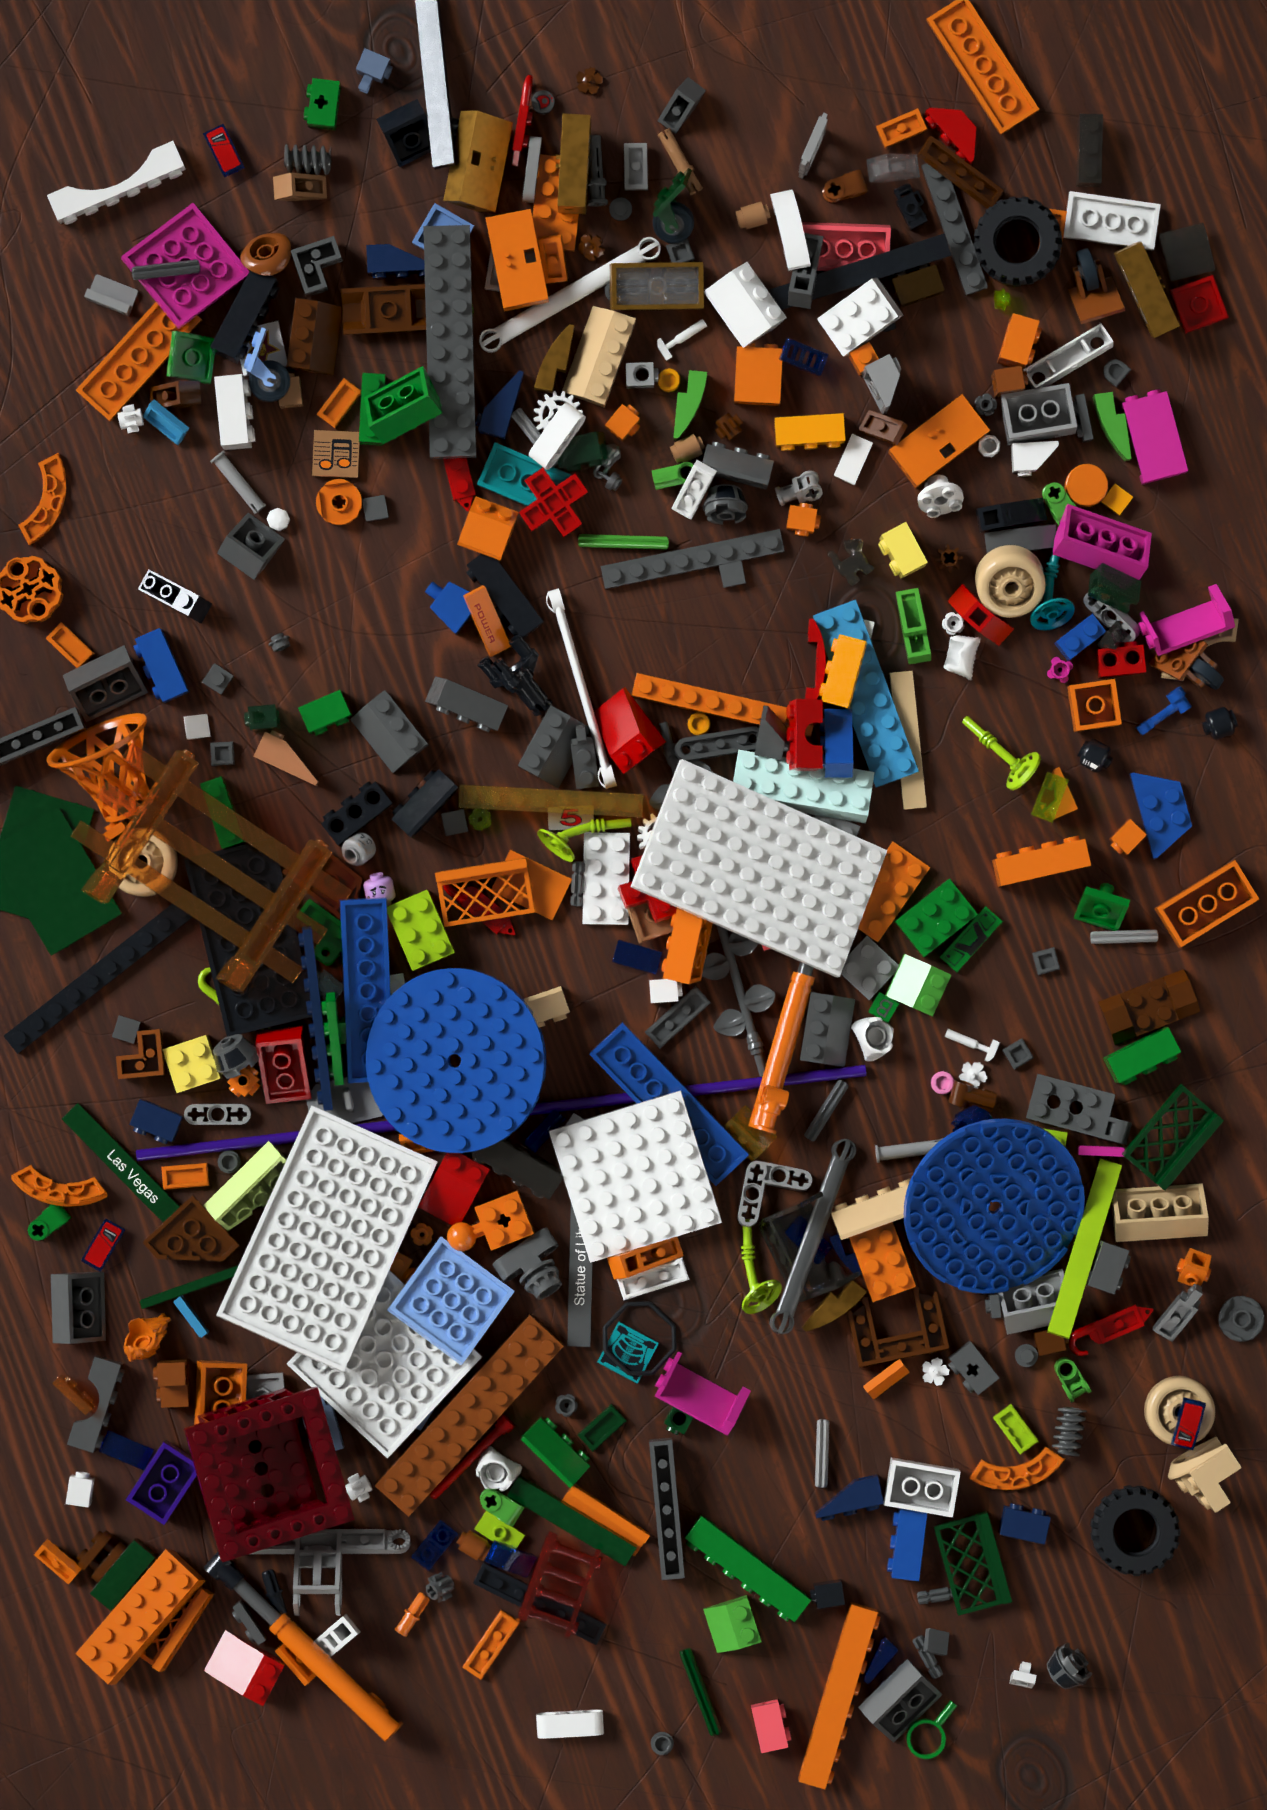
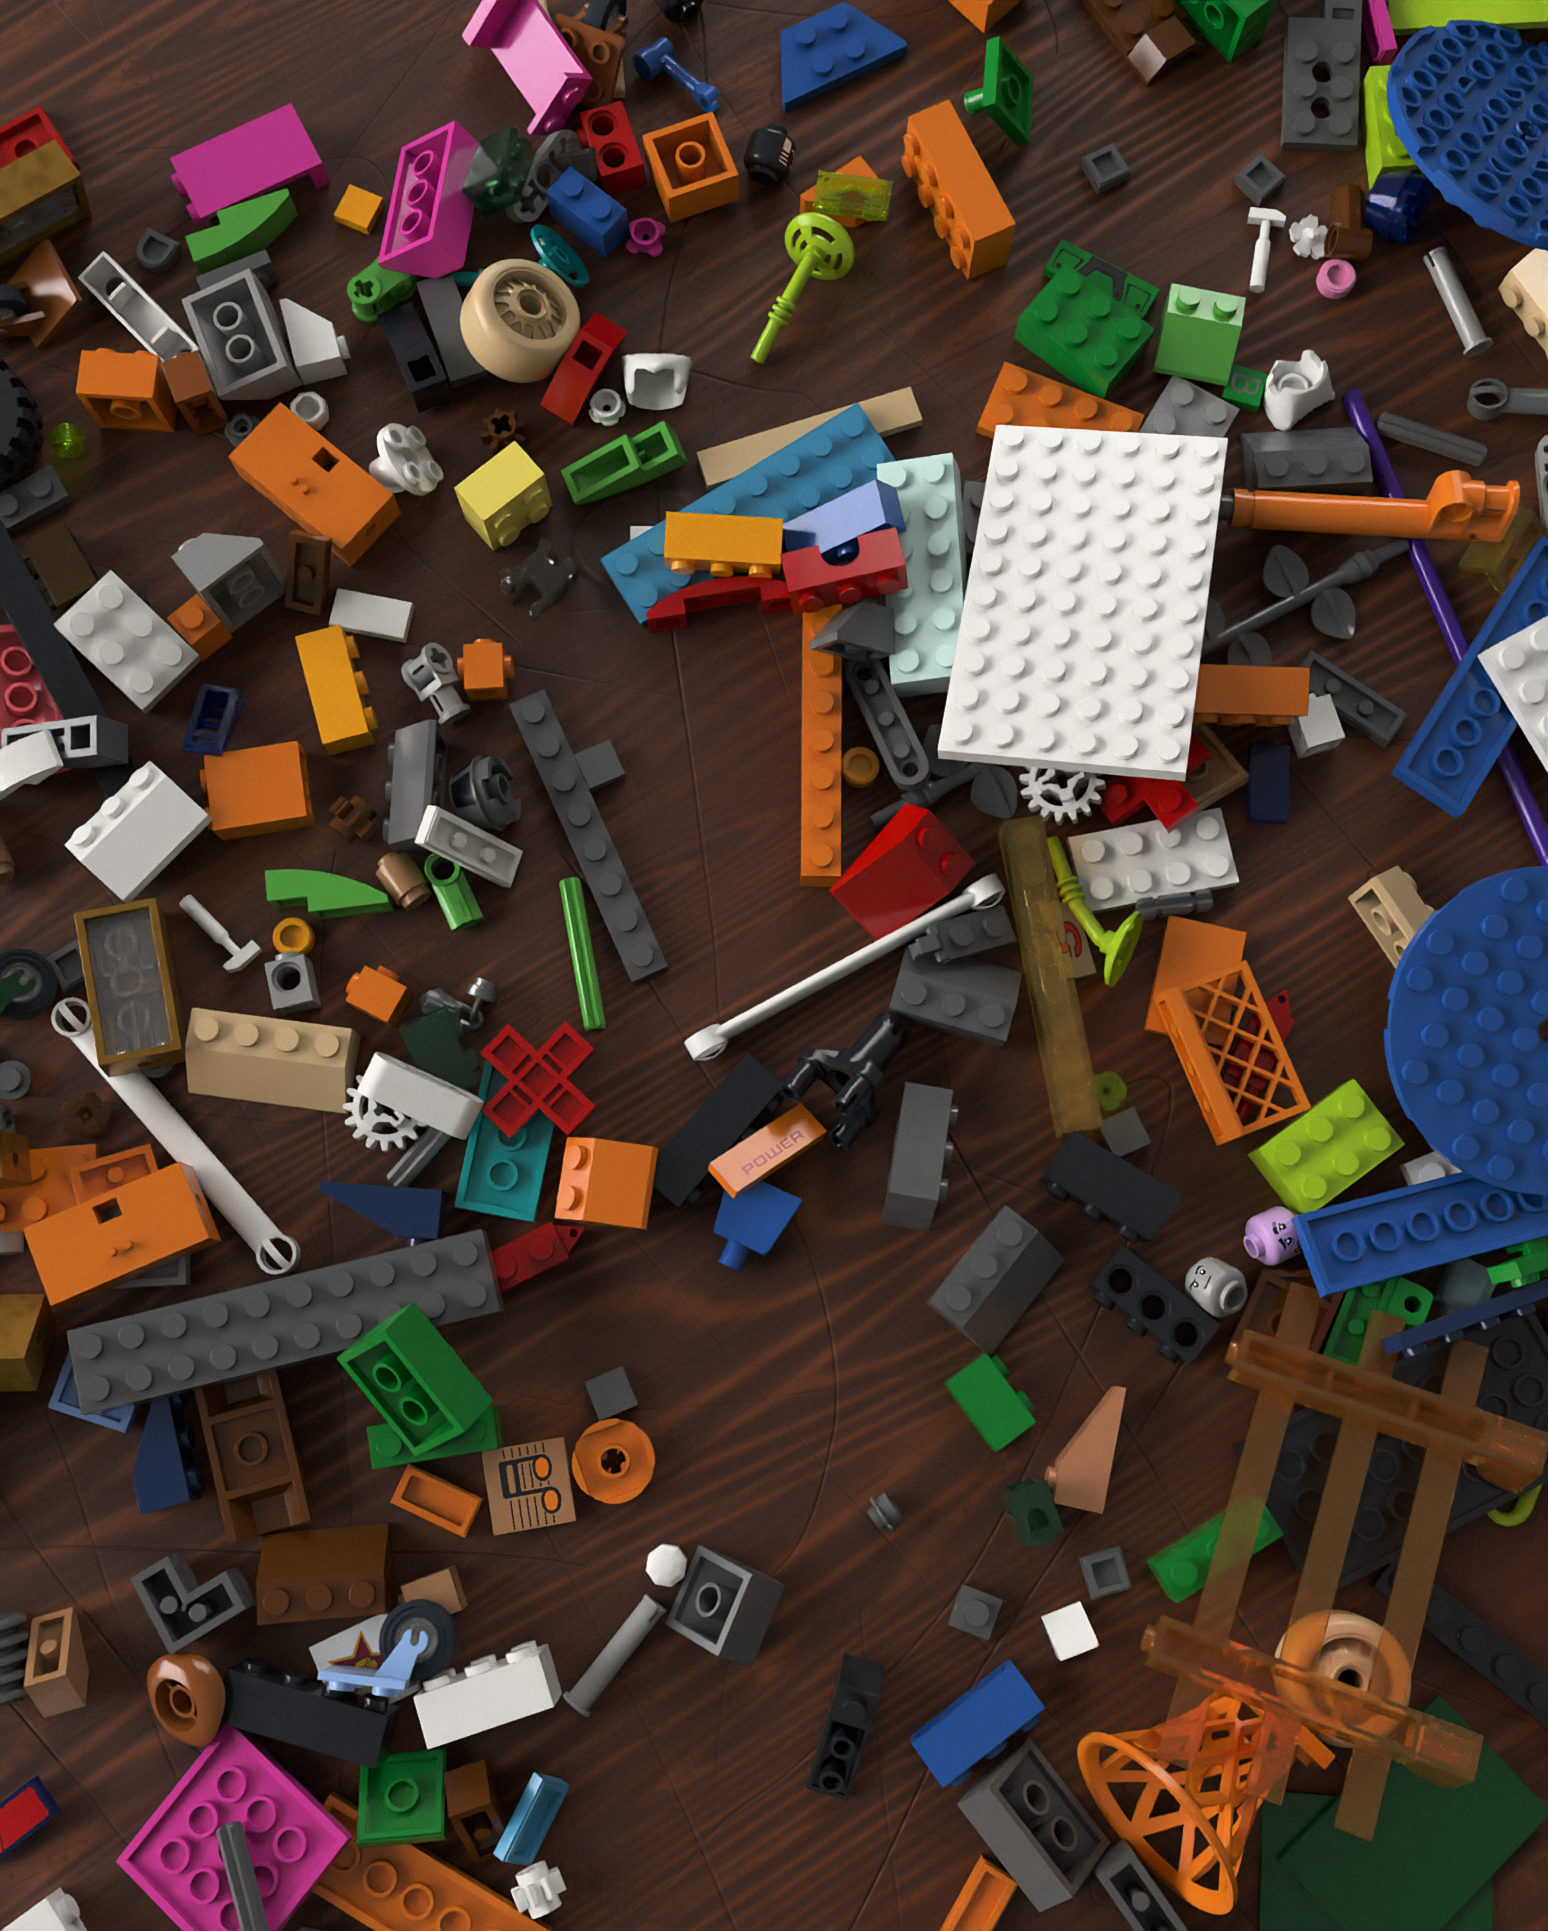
camera: 105 degrees left, 10 degrees down
(554, 361) = (295, 1133): pearl gold slope -> none
(1086, 485) = (341, 251): orange head -> none
(1127, 837) = (885, 85): orange brick -> none
(1128, 936) = (1038, 64): light grey axle -> none

